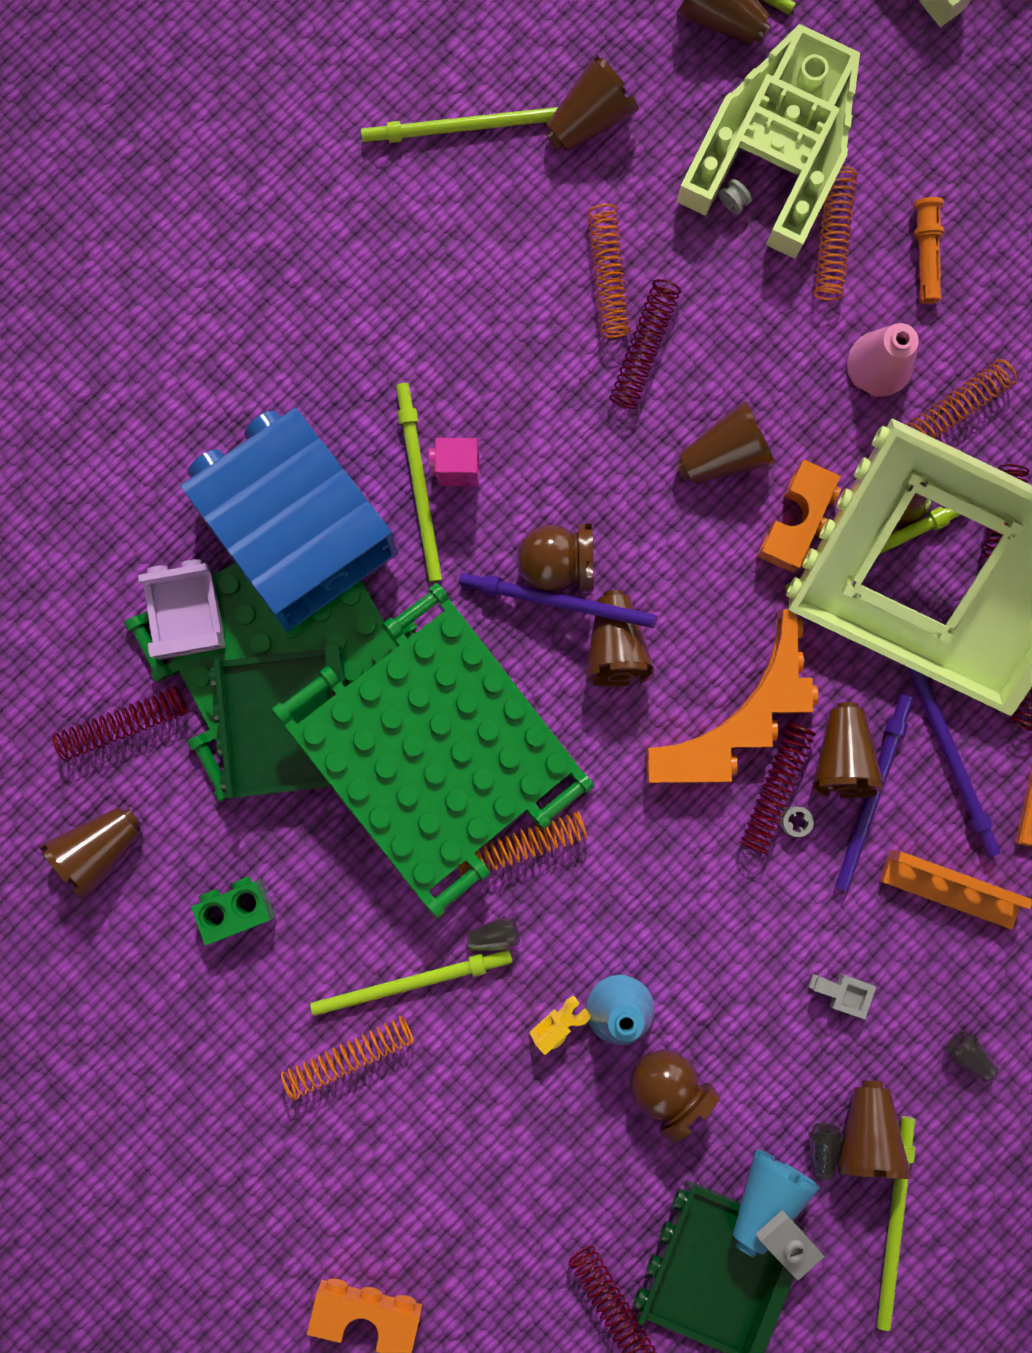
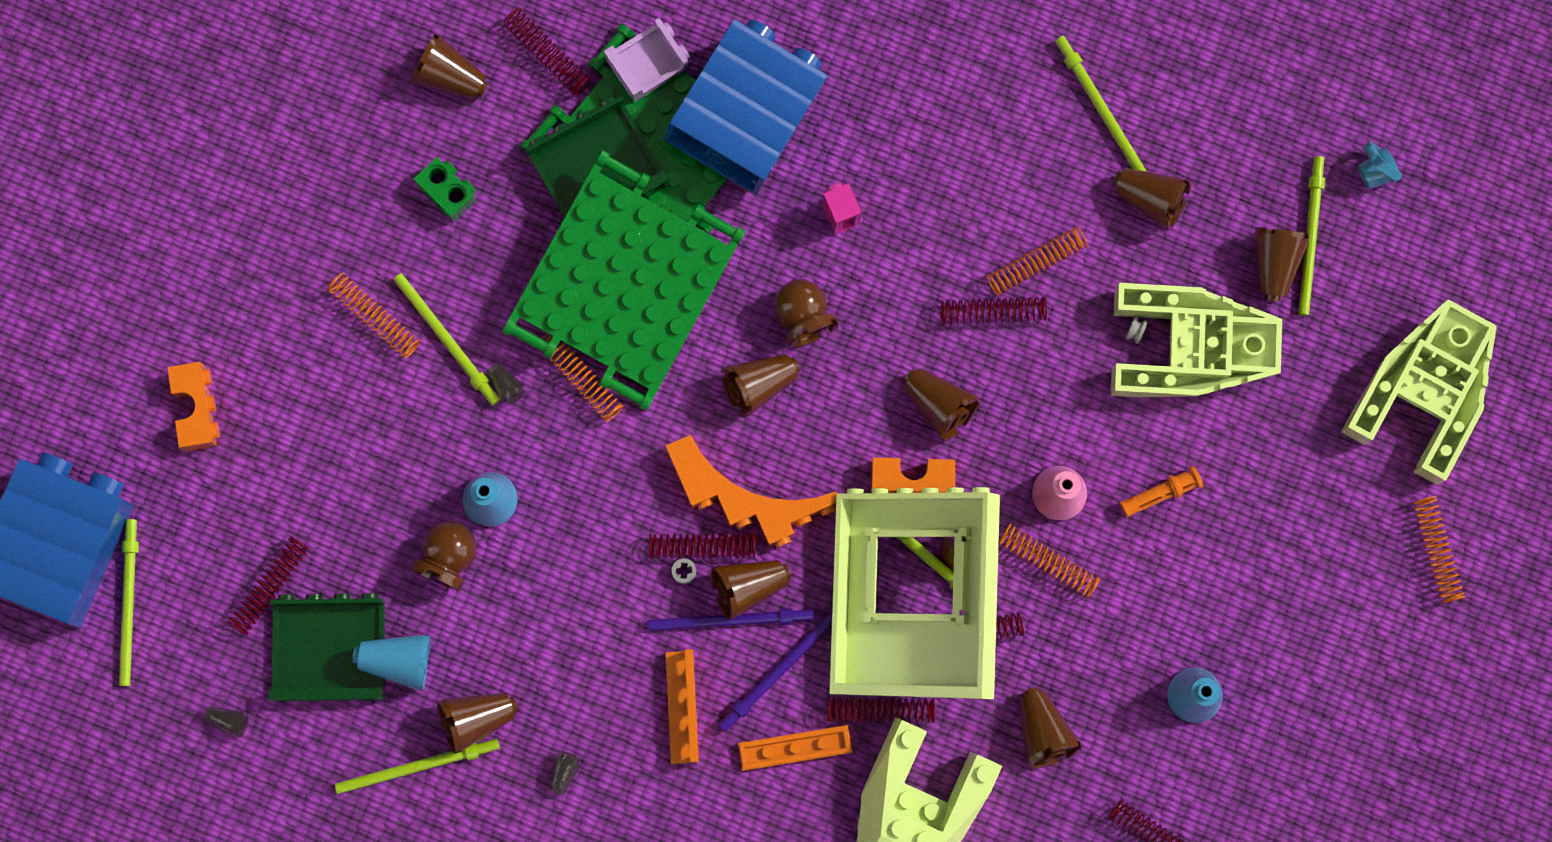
camera: 60 degrees right, 5 degrees down
(408, 419) = (860, 161): lime bar -> none
(495, 586) = (763, 277): dark purple bar -> none
(555, 1026) = (455, 454): yellow plate -> none
(790, 1245) = (372, 680): light grey plate -> none
(822, 288) = (1090, 421): orange piece -> none
(825, 1149) = (452, 687): clear smoke cone -> none
(847, 994) = (571, 661): light grey plate -> none

